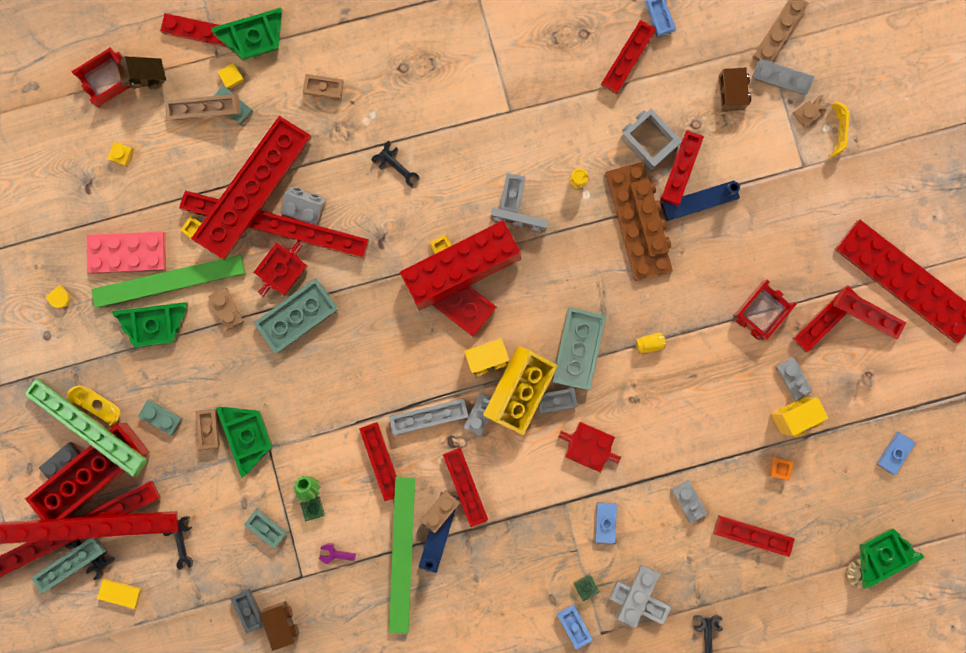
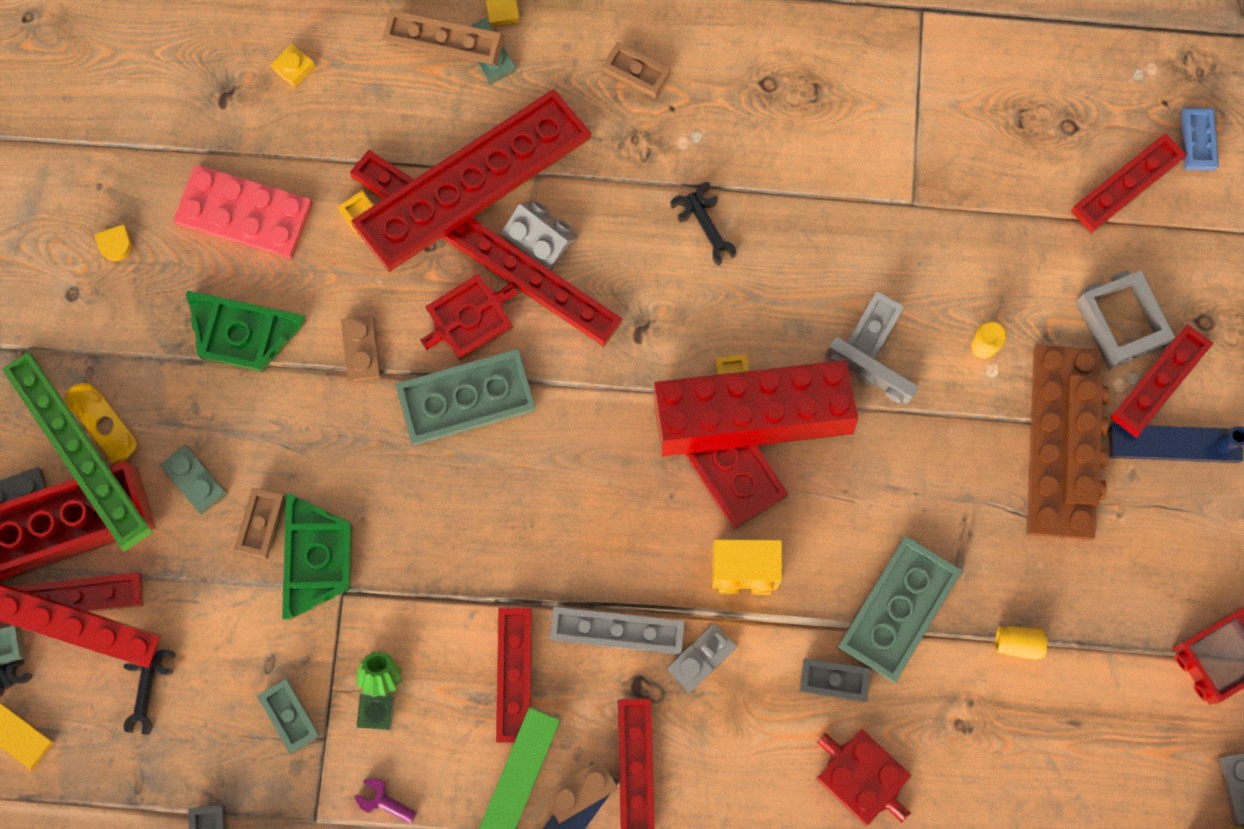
camera: 25 degrees right, 10 degrees down
(168, 281) = (289, 276): bright green tile -> none
(520, 390) = (782, 638): yellow brick -> none

